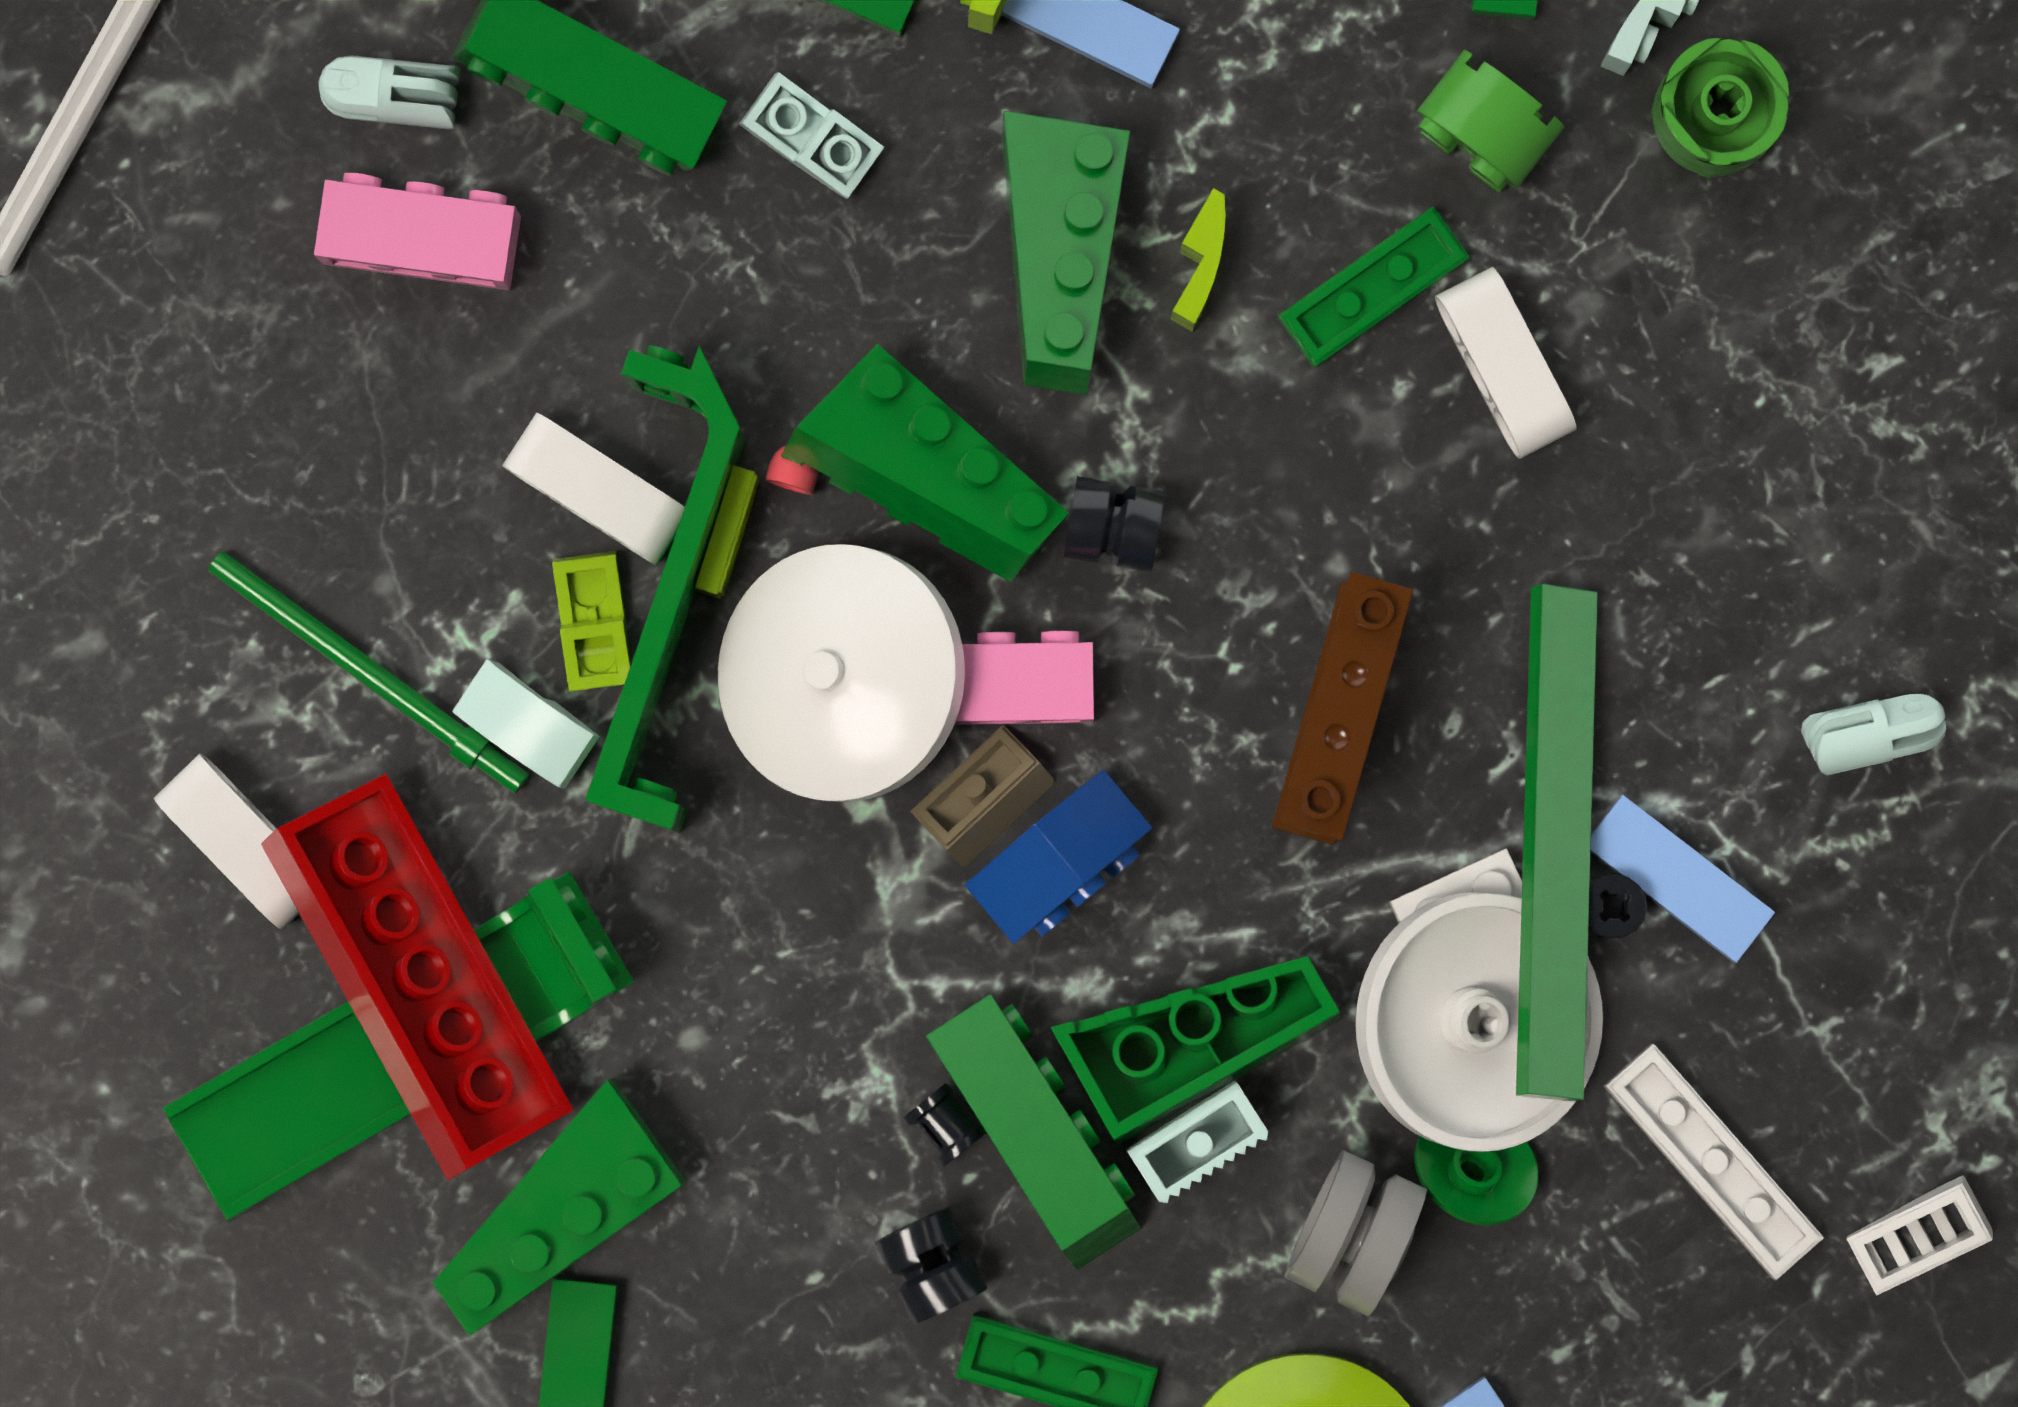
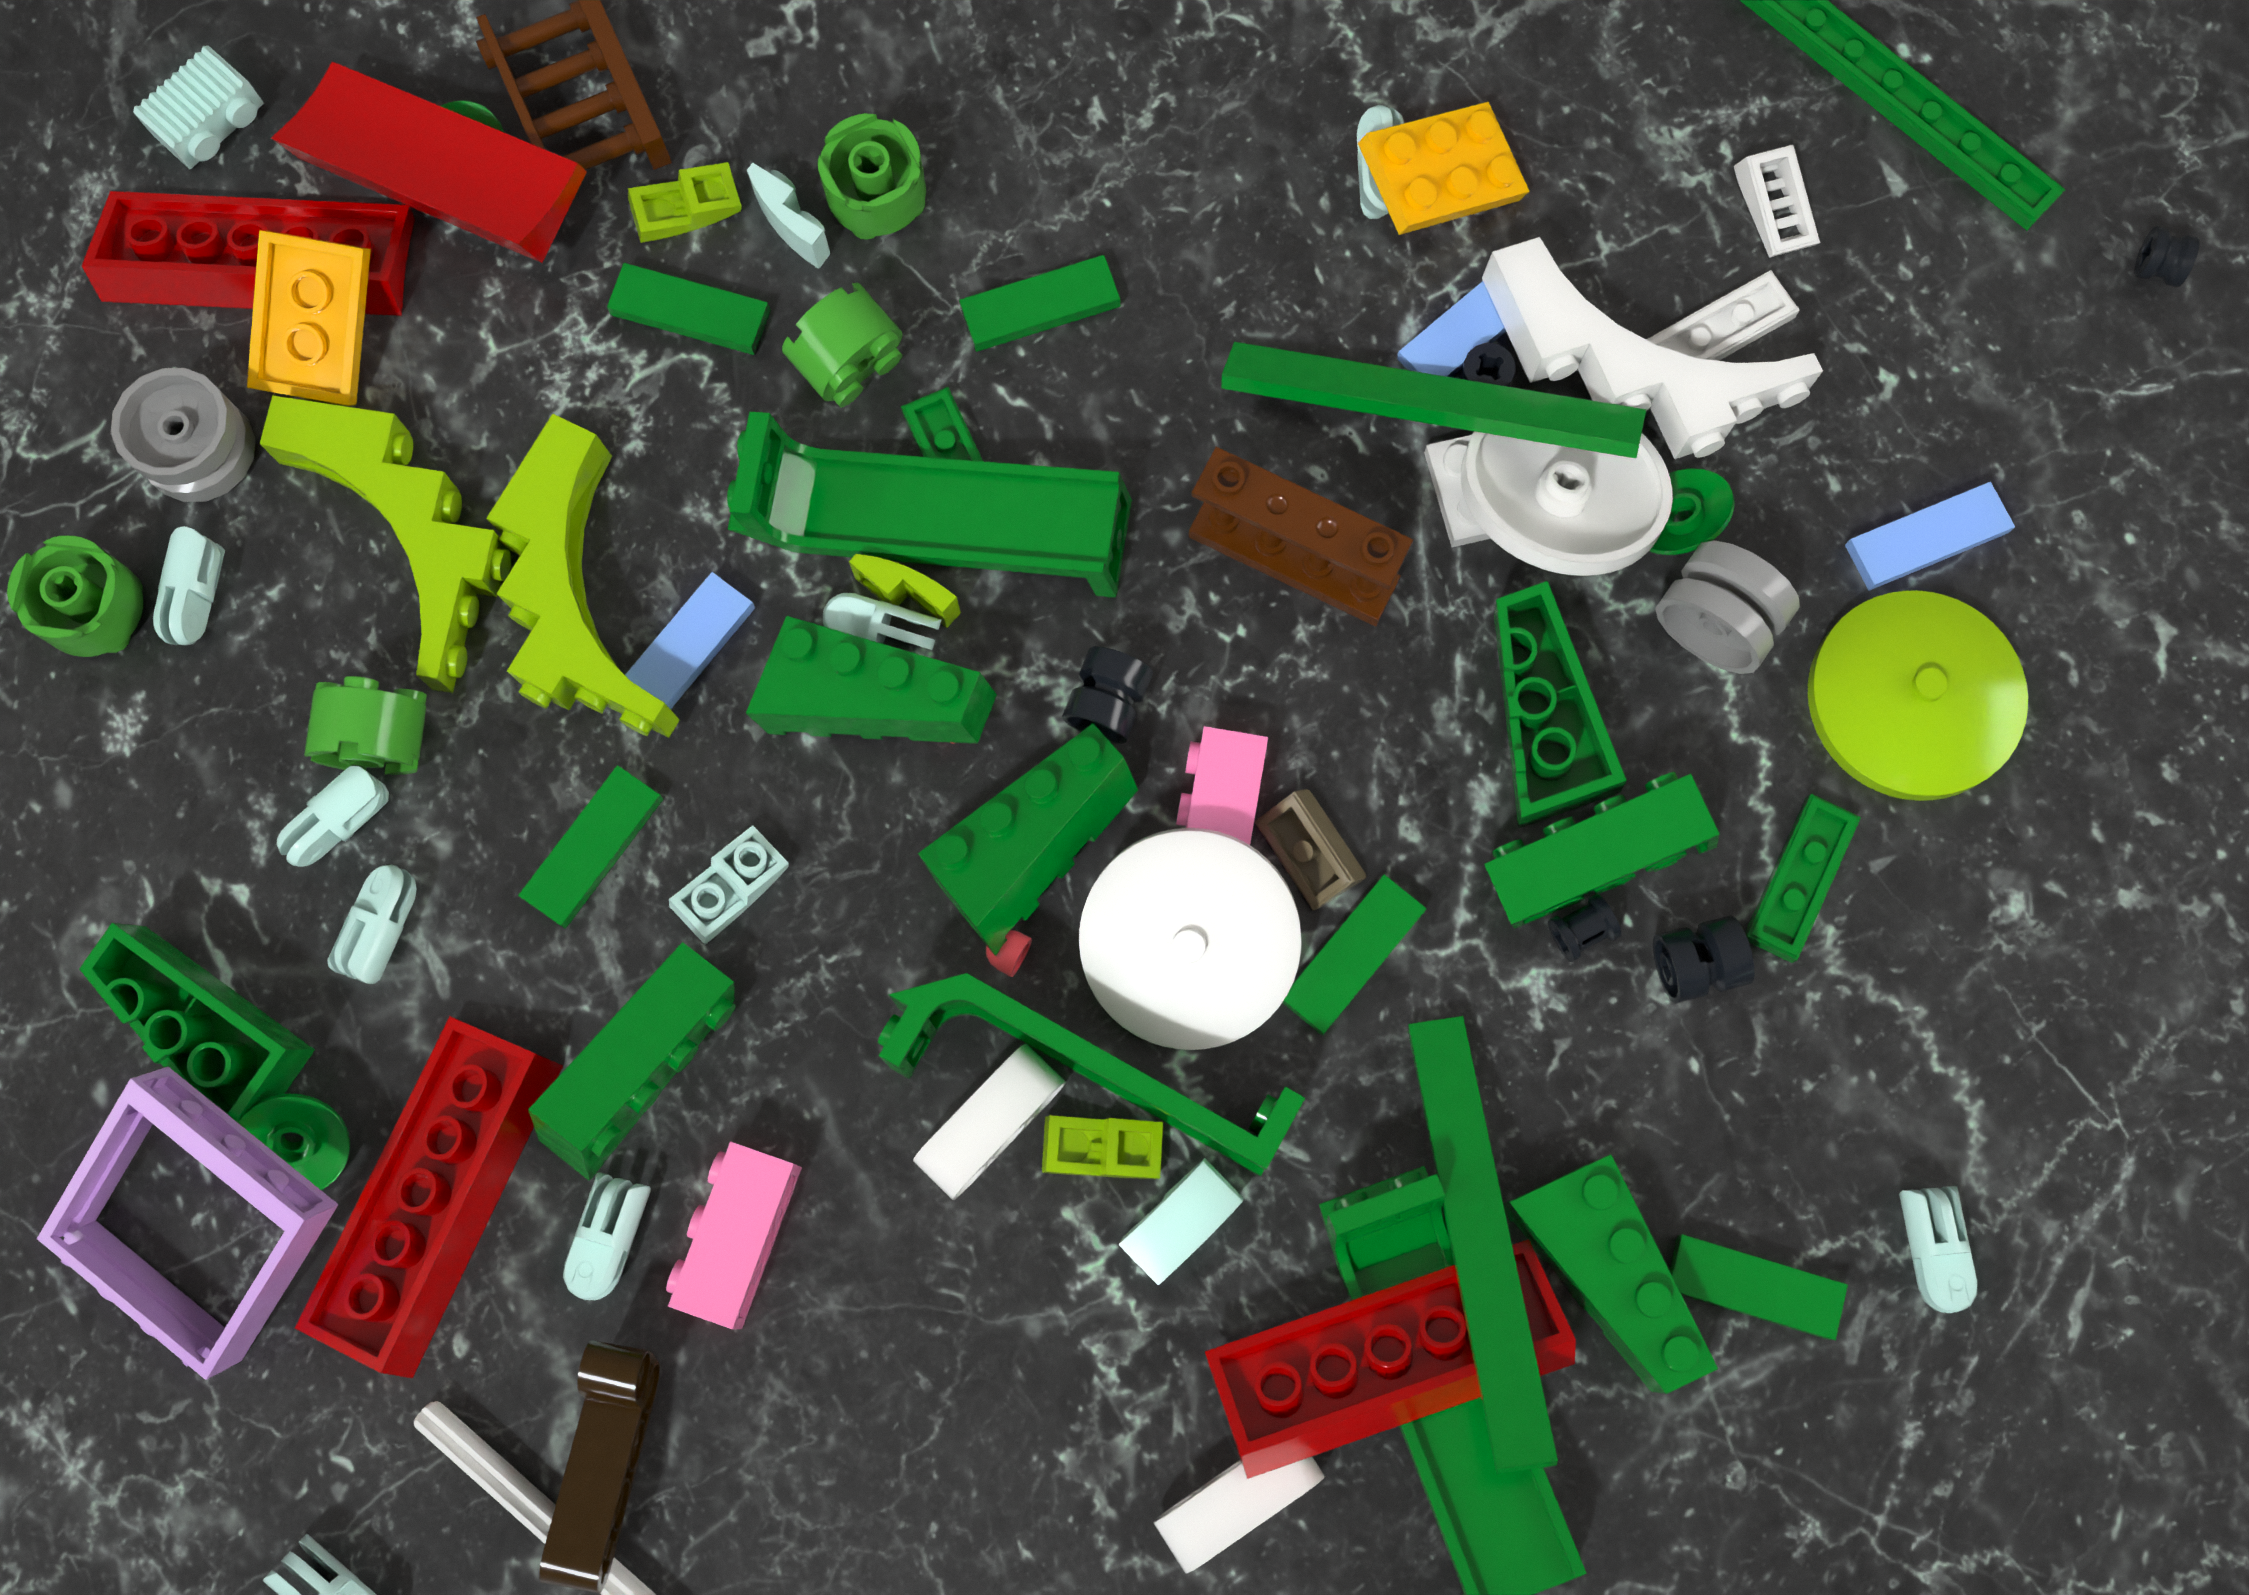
camera: 80 degrees left, 10 degrees down
(147, 147) = (601, 1466): none -> dark brown beam
(465, 743) = (1189, 1277): green bar -> none
(559, 1051) = (1482, 1249): none -> green tile
(728, 532) = (1053, 1011): lime tile -> none
(866, 866) = (1353, 954): none -> green tile
(1060, 859) = (1380, 787): blue brick -> none
(1147, 242) = (871, 619): none -> light aqua arm
(1197, 1142) = (1635, 720): light aqua brick -> none
(1302, 270) = (929, 508): none -> green panel
(1505, 362) = (1038, 373): white beam -> none
(1603, 345) = (1039, 303): none -> green tile
(1621, 1155) = (1688, 395): none -> white arch
(1871, 808) = (1443, 167): none -> yellow plate

